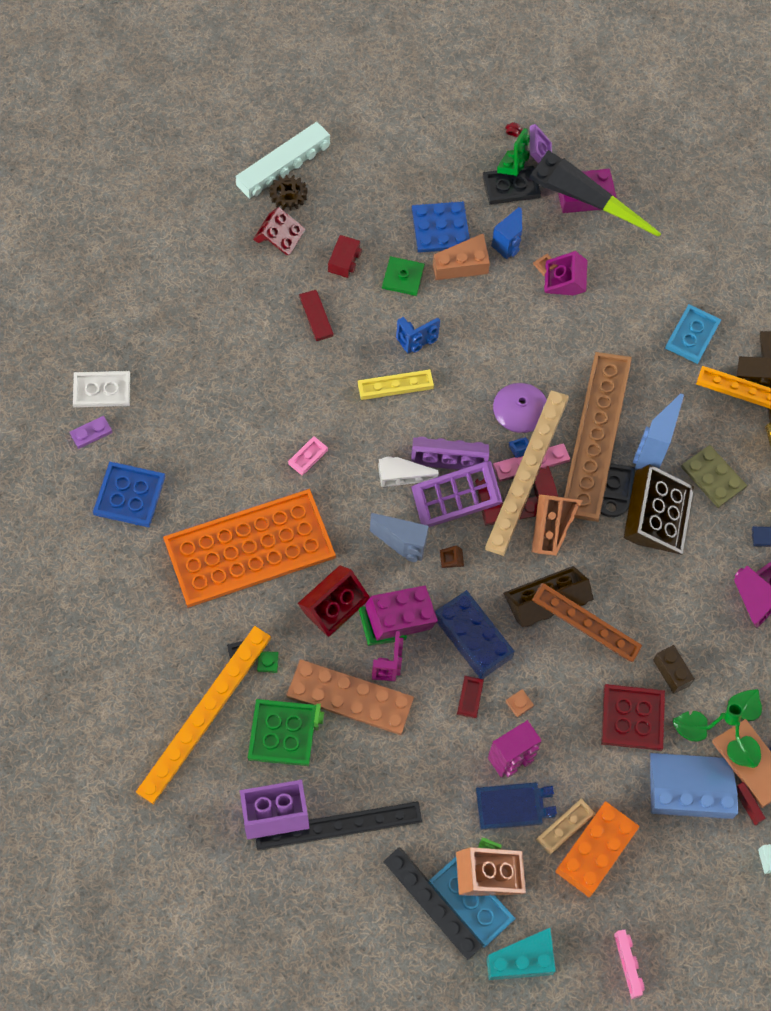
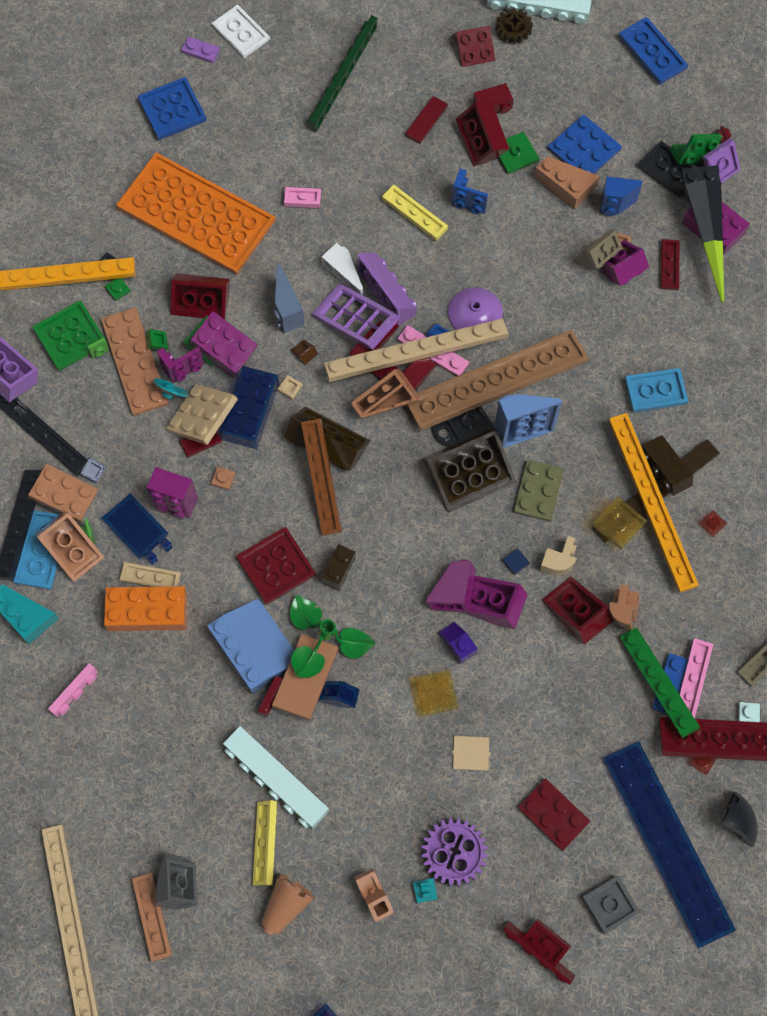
camera: 55 degrees right, 5 degrees up
(221, 348) = (339, 79): none -> dark green plate
(347, 664) = (156, 339): none -> green plate
(371, 284) = (482, 132): none -> dark red slope
(397, 119) = (653, 50): none -> blue plate
(407, 685) = (169, 389): none -> teal dish
(429, 804) = (92, 470): none -> tile
(433, 843) = (63, 492): none -> nougat plate
(452, 676) = (201, 414): none -> tan plate
(477, 590) = (289, 387): none -> tan tile
(546, 284) = (600, 250): none -> dark tan bracket
(592, 246) = (670, 264): none -> dark red tile

